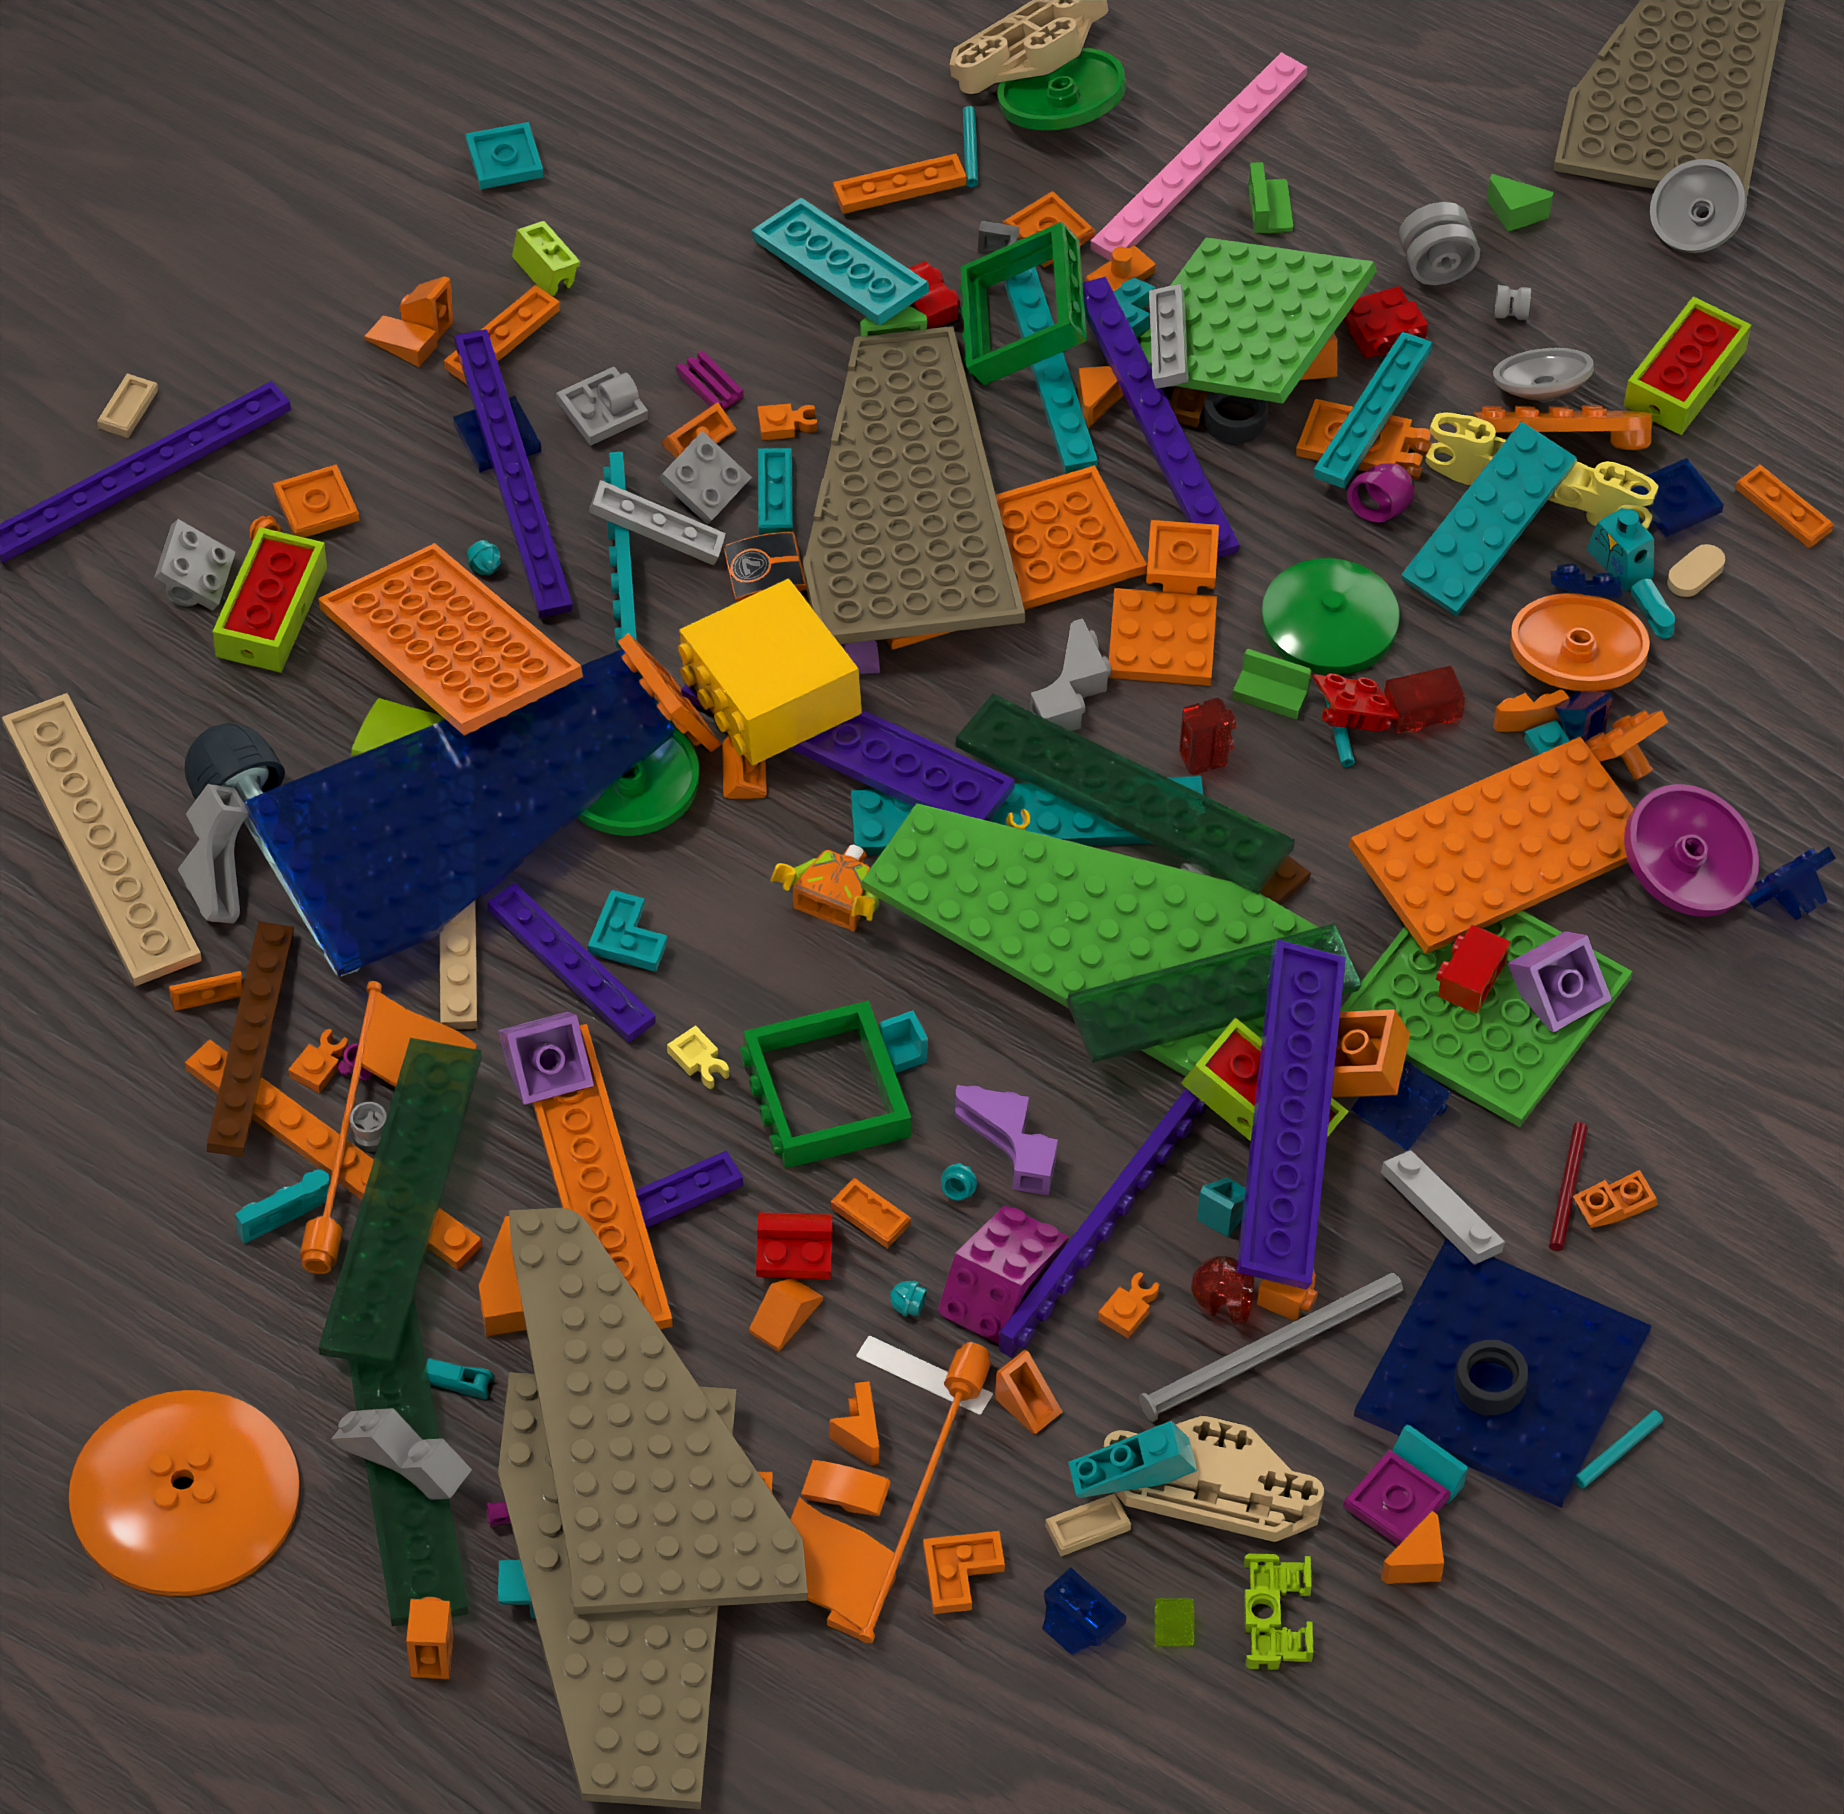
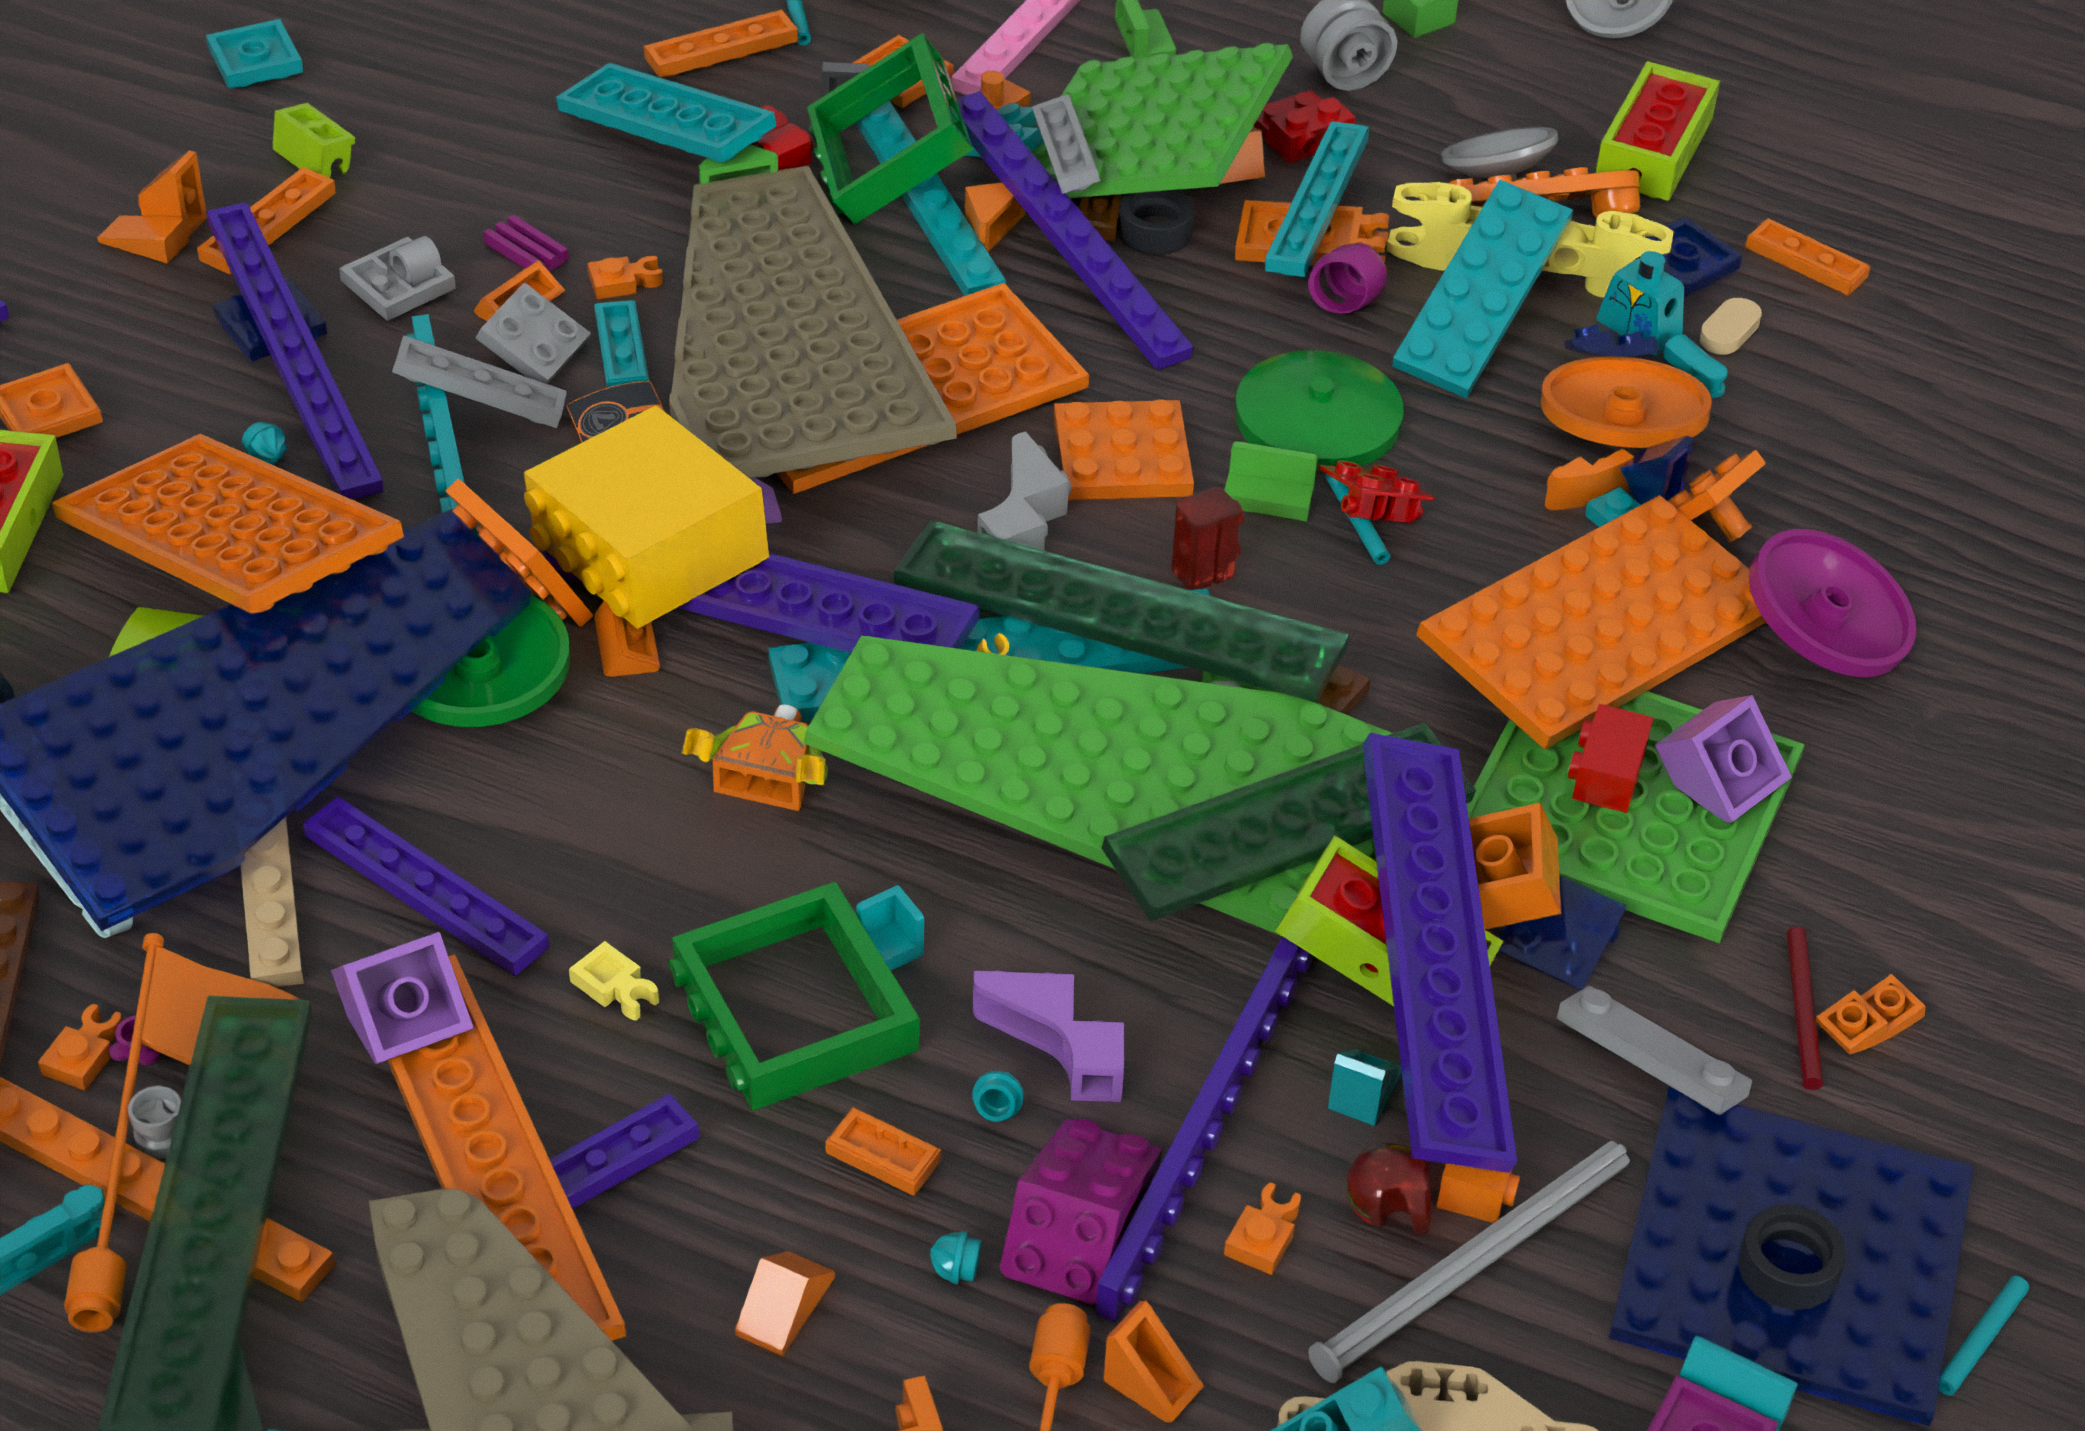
camera: 10 degrees left, 10 degrees down
(500, 1290) = (367, 1320): orange slope -> none
(620, 939) = (488, 848): teal plate -> none
(794, 1245) = (784, 1206): red brick -> none
(915, 1371) = (984, 1358): white sticker -> none
(1182, 555) = (1130, 359): orange panel -> none
(1425, 699) = (1460, 479): clear red brick -> none
(1520, 302) = (1442, 93): light grey wheel -> none
(1795, 884) = (1969, 624): clear blue plate -> none

